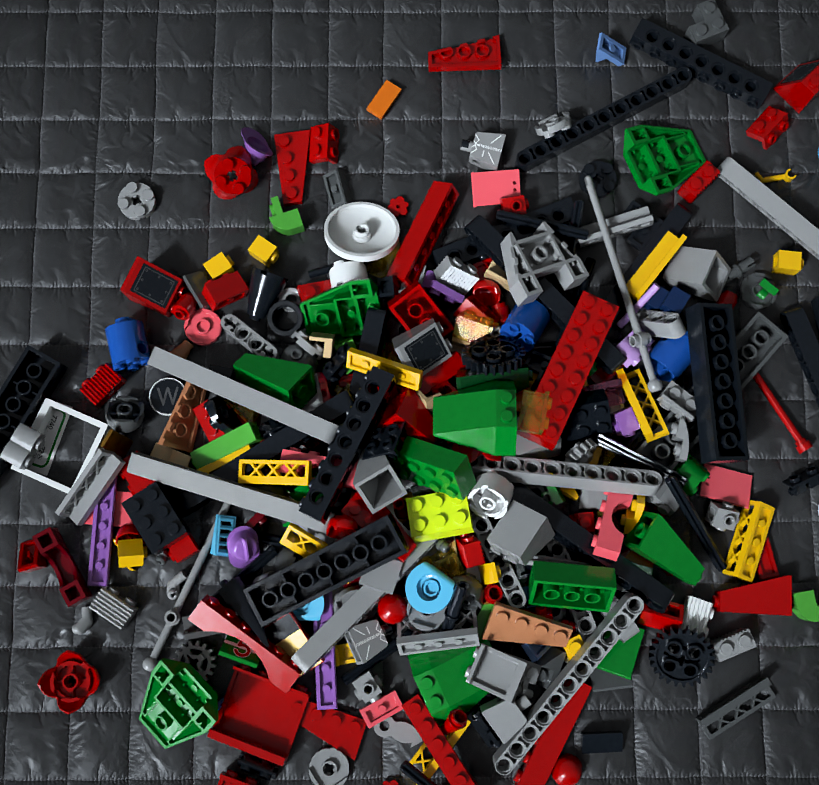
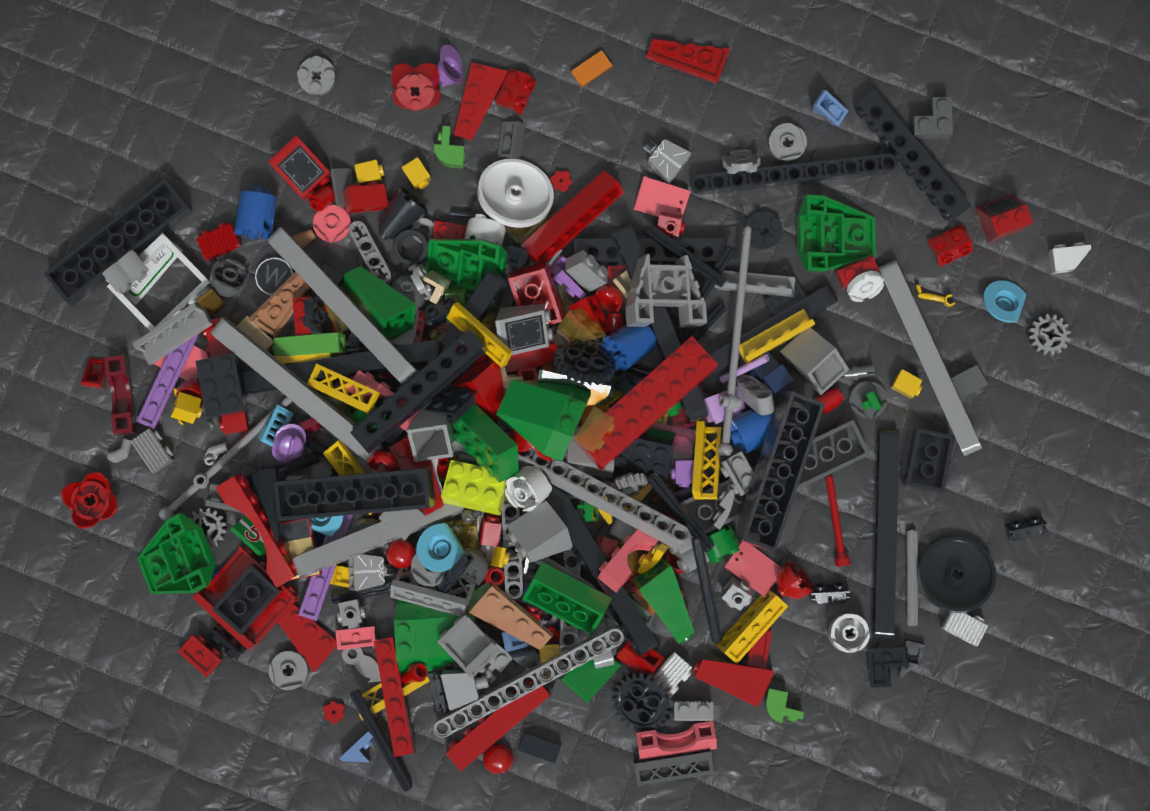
camera: 20 degrees right, 5 degrees up
(261, 716) = (247, 599): none -> black brick
(585, 85) = (794, 134): none -> light grey plate
(712, 189) = (865, 285): none -> white tile
(745, 672) = (657, 745): none -> coral arch
(769, 484) = (792, 582): none -> red cylinder

